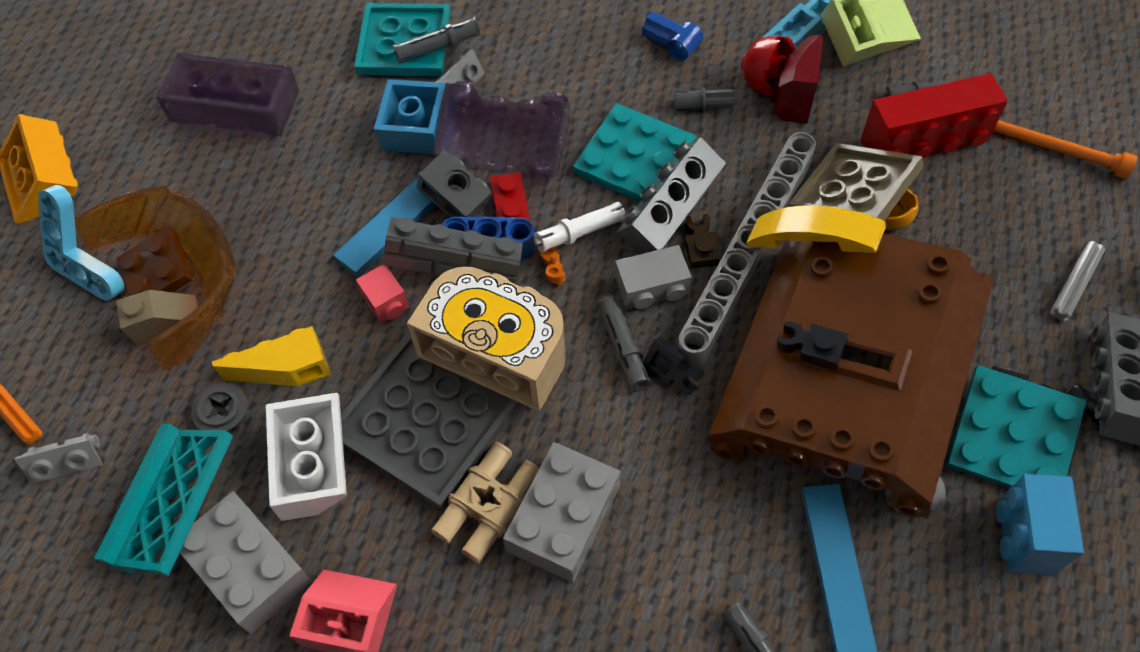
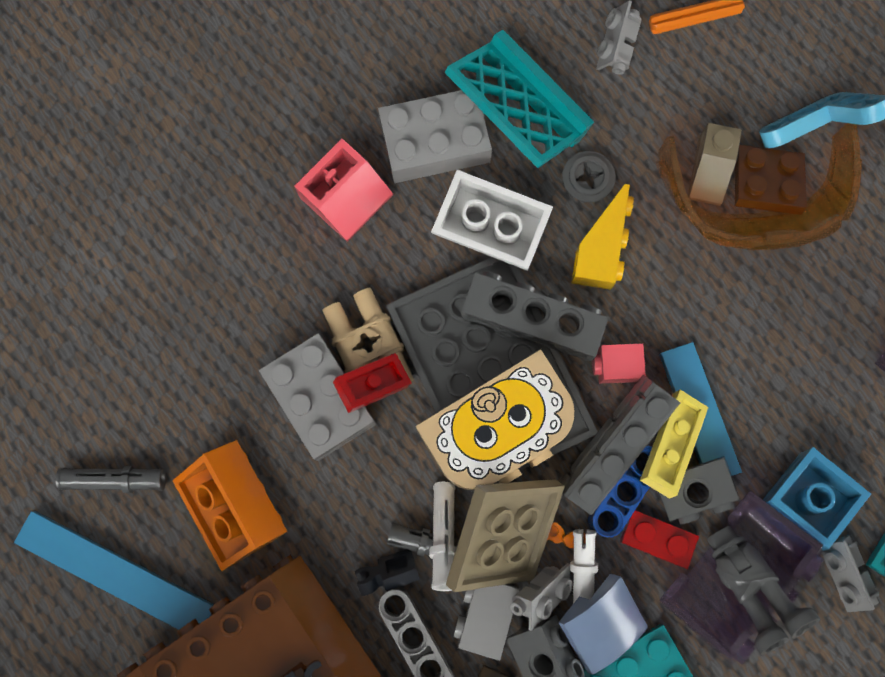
camera: 120 degrees right, 20 degrees up
(394, 417) = (588, 319): none -> dark grey brick
(439, 209) = (674, 446): none -> light yellow plate
(498, 130) = (746, 573): none -> dark grey piece
(520, 458) = (371, 382): none -> red plate
(585, 282) = (504, 534): none -> dark tan plate
(601, 193) = (603, 625): none -> sand blue slope
(613, 337) = (443, 534): none -> white pin
(616, 243) = (543, 595): none -> light grey hinge
(711, 530) = (229, 504): none -> orange slope

